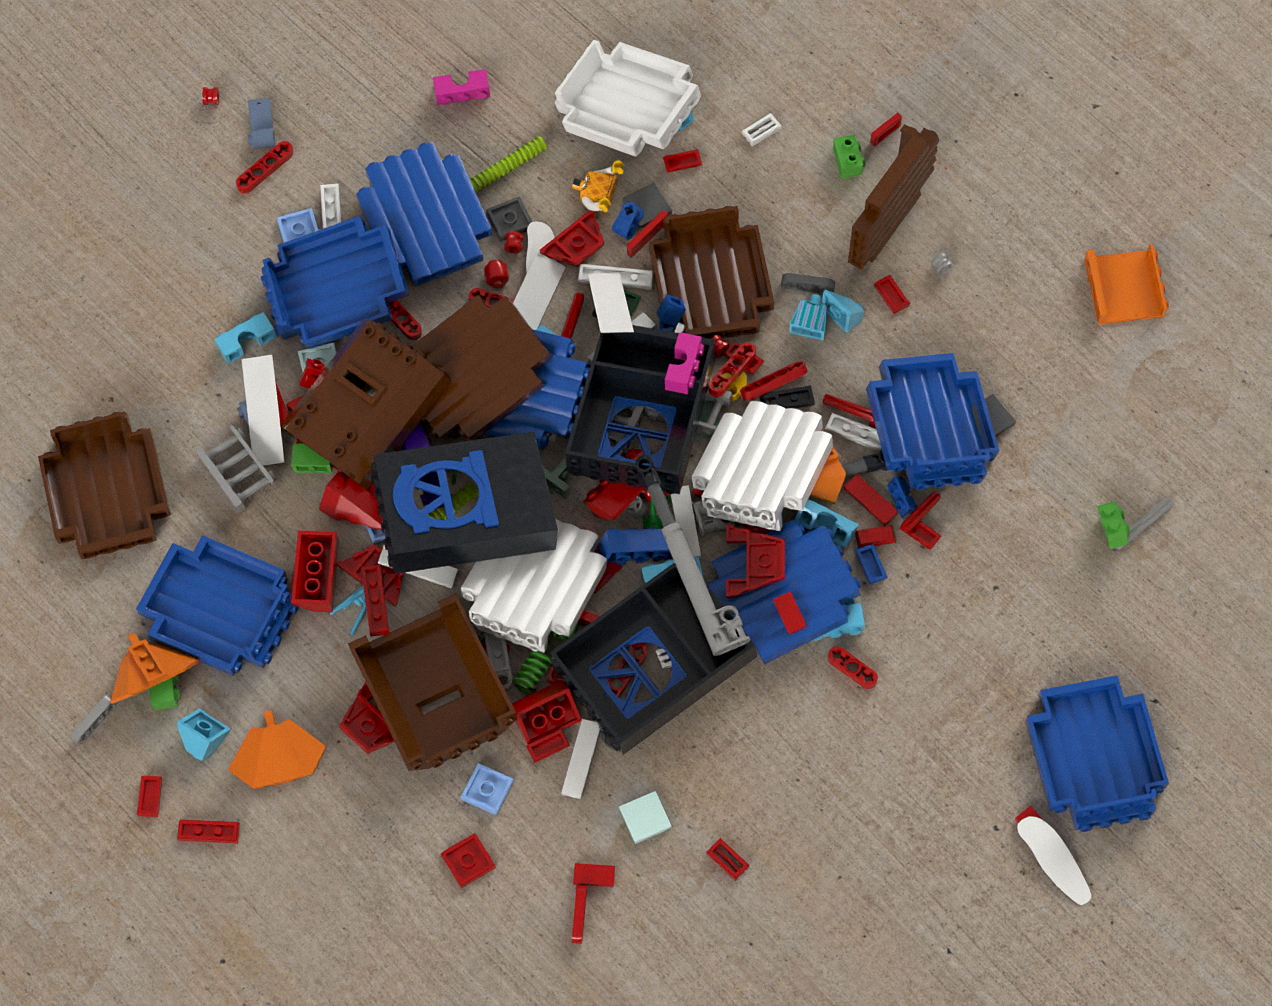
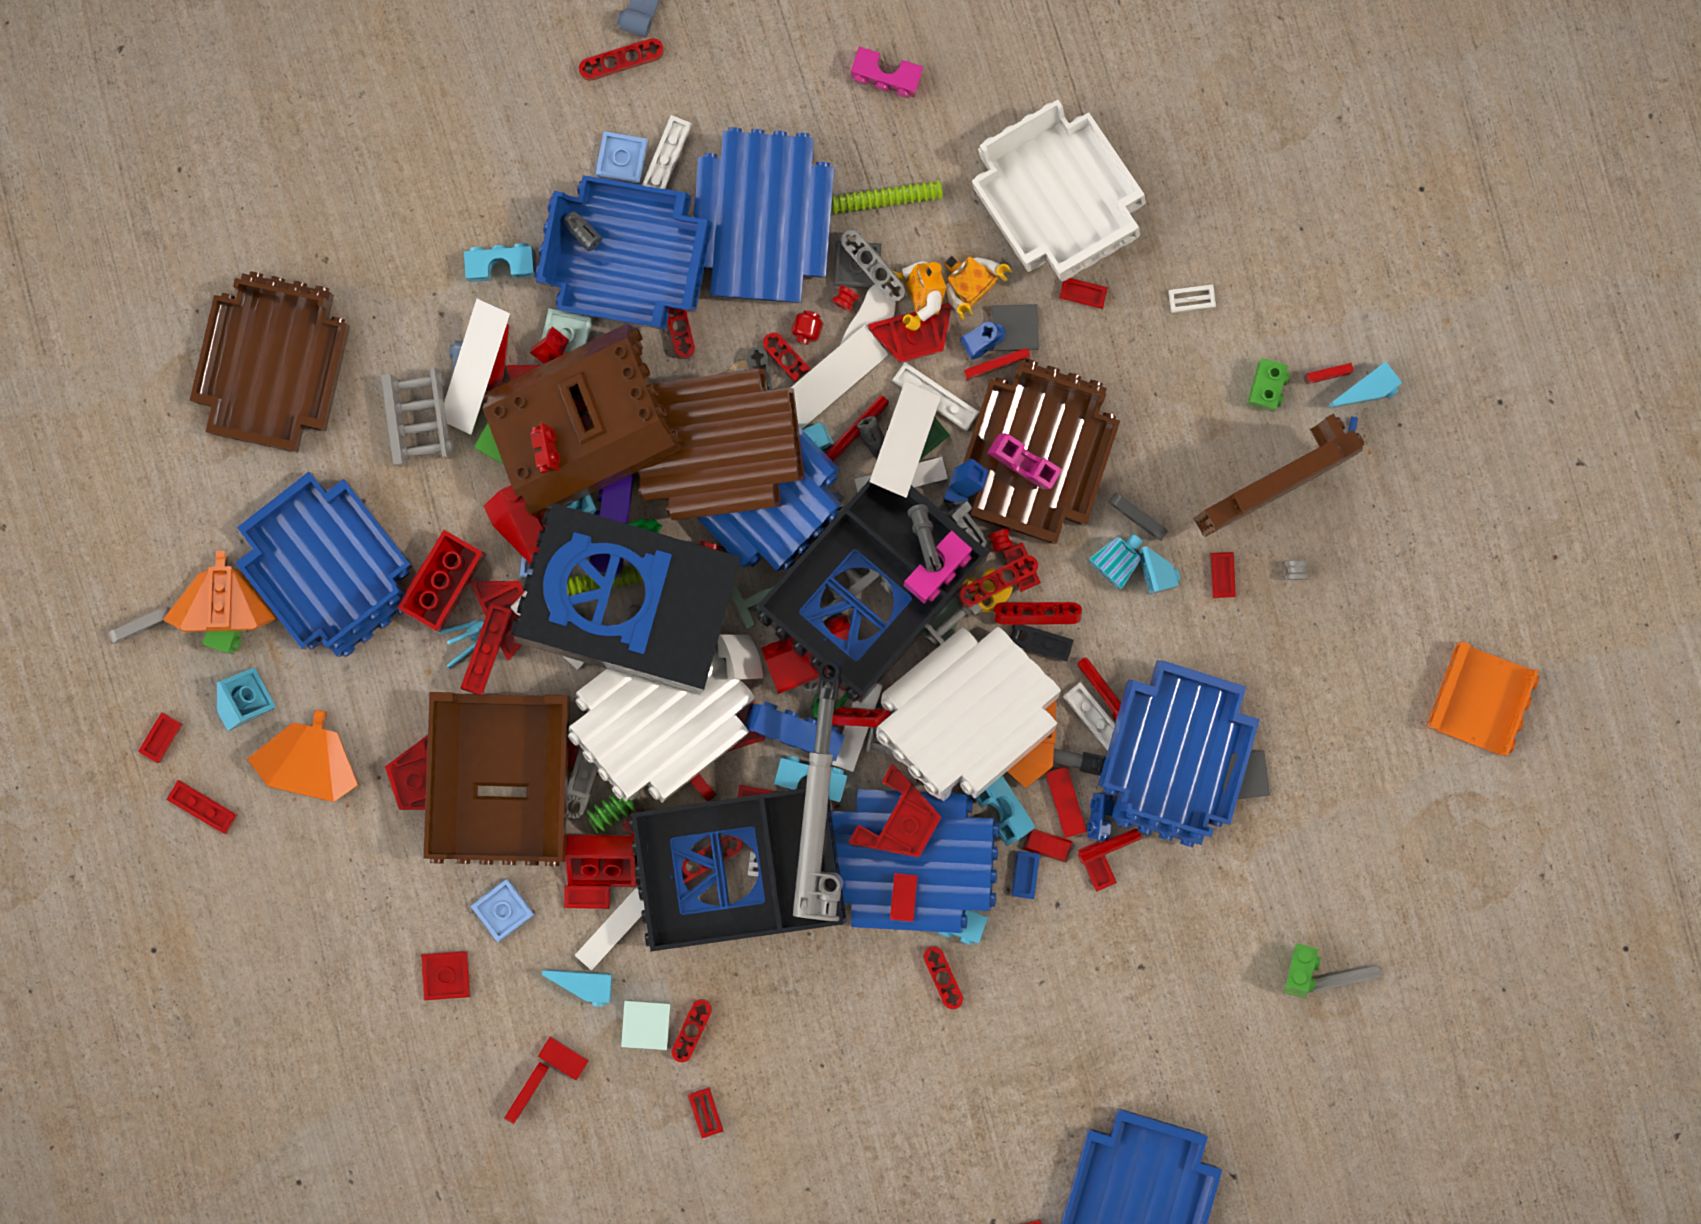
camera: 25 degrees right, 20 degrees up
(297, 282) = (582, 231): none -> dark grey hinge
(353, 426) = (544, 437): none -> red hinge
(523, 207) = (876, 263): none -> light grey beam
(566, 203) = (925, 289): none -> torso
(573, 513) = (741, 657): none -> white slope
(581, 809) = (589, 986): none -> medium azure slope
(585, 321) = (874, 441): none -> dark grey hinge
(658, 343) = (923, 528): none -> dark grey pin
(686, 504) = (859, 716): none -> red tile
(687, 789) = (678, 1043): none -> red beam
(719, 283) = (1033, 468): none -> dark pink arch
(926, 117) = (1373, 387): none -> medium azure slope

